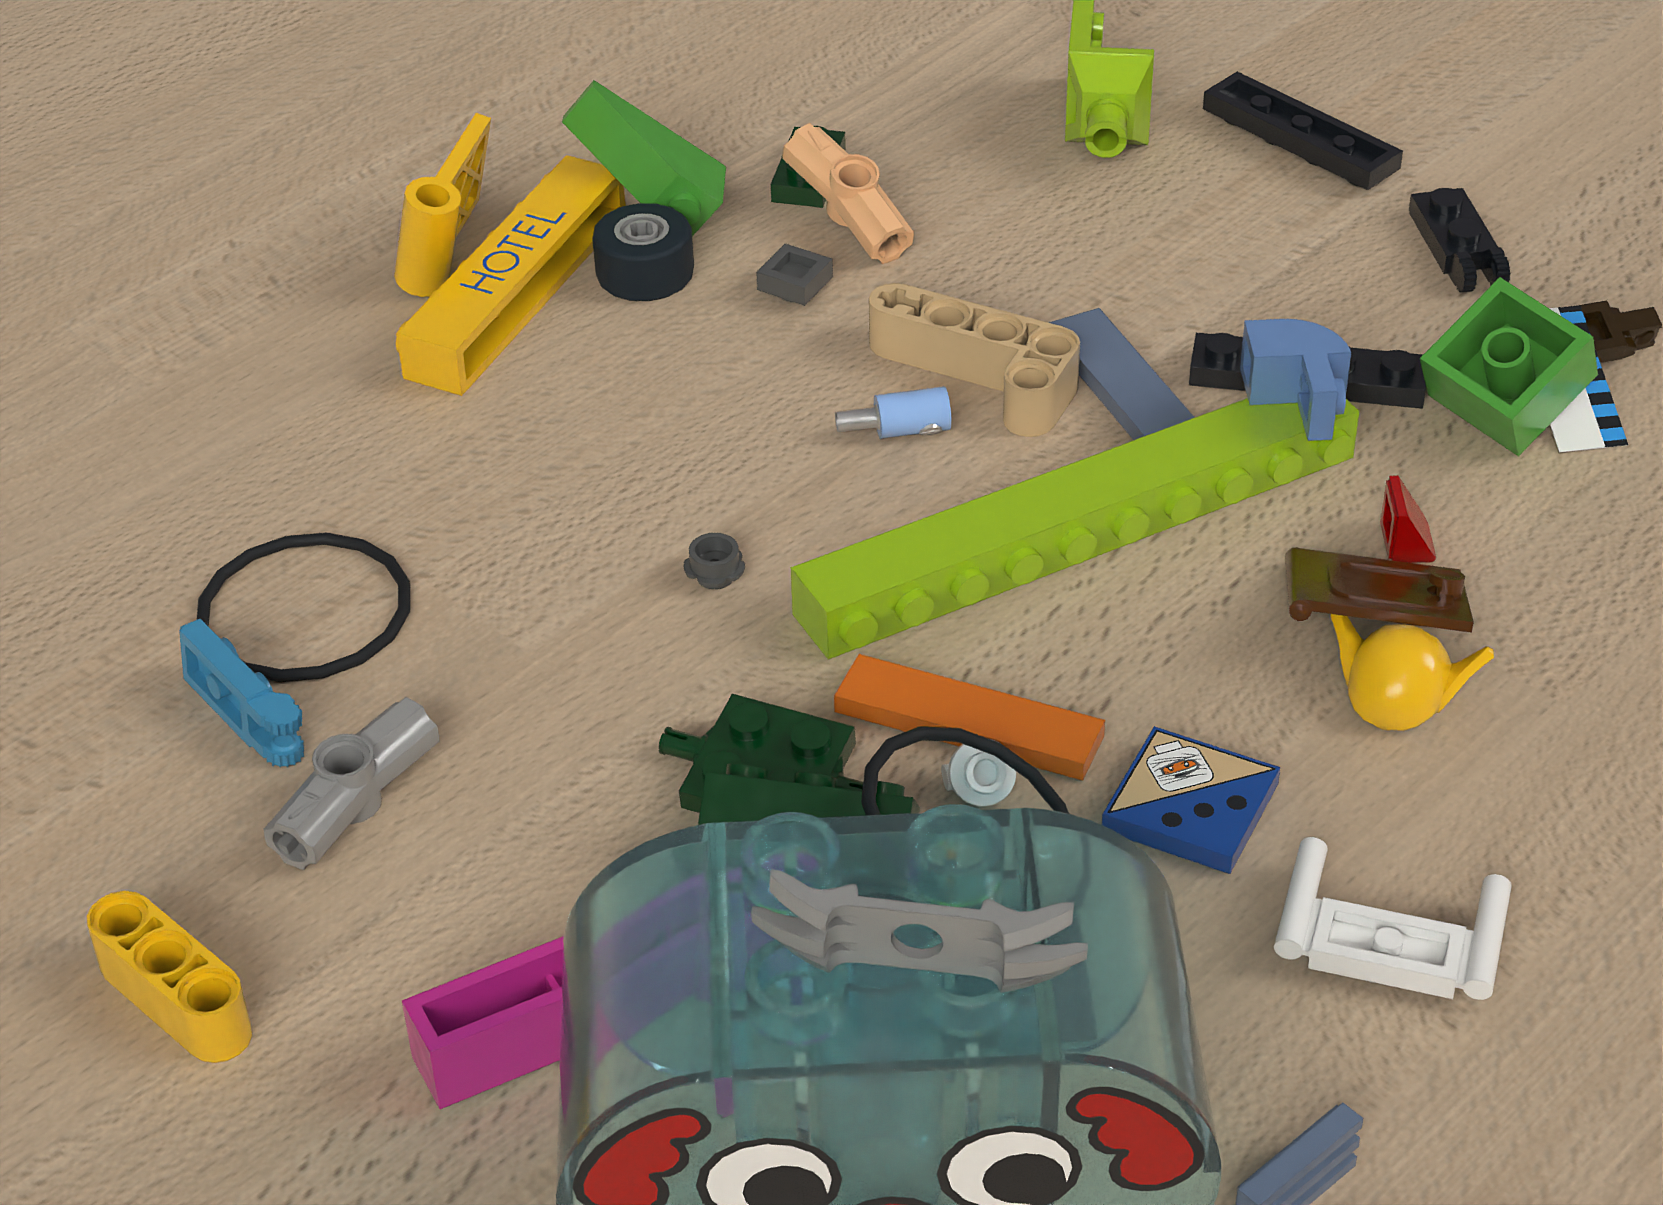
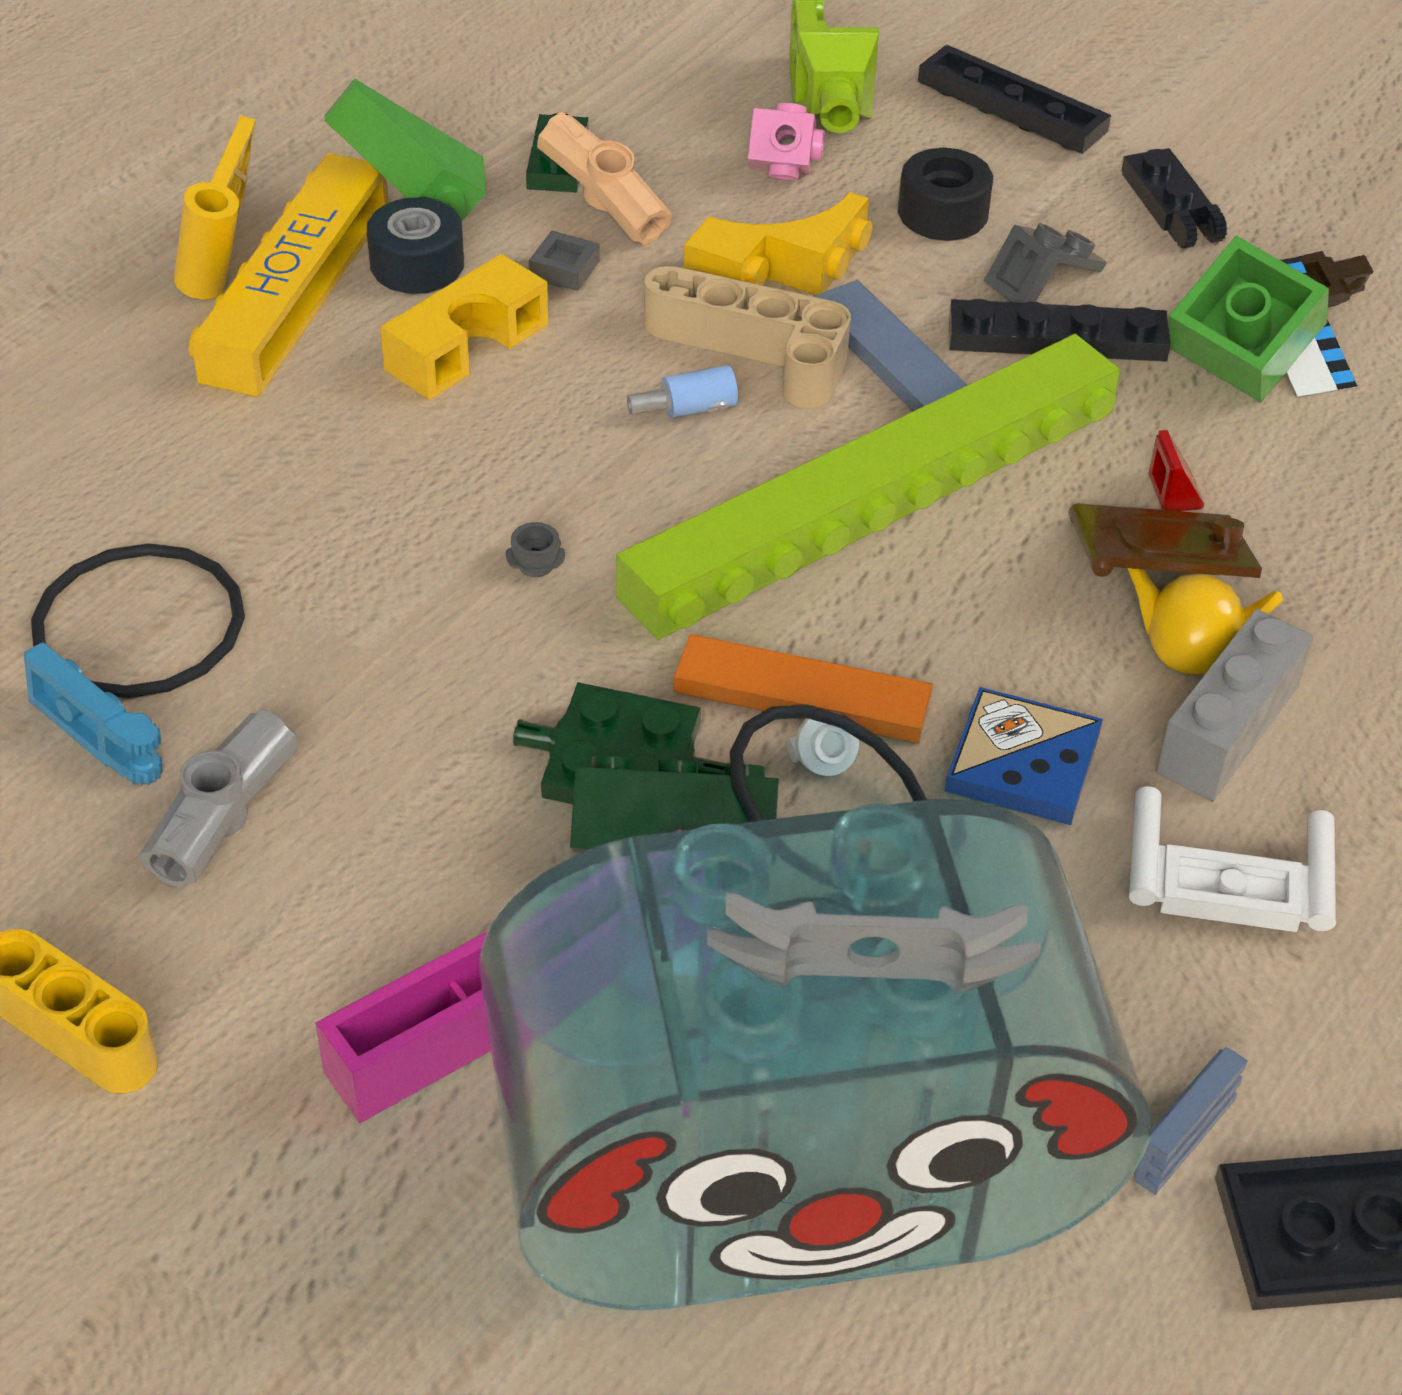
camera: 10 degrees left, 5 degrees up
(713, 312) = (430, 340): none -> yellow arch
(1029, 154) = (773, 127): none -> bright pink brick
(1038, 278) = (794, 253): none -> yellow arch
(1208, 224) = (945, 193): none -> black tyre
(1289, 288) = (1031, 257): none -> dark grey bracket
(1297, 365) = (1062, 327): medium blue brick -> none
(1422, 761) = (1233, 704): none -> light grey brick

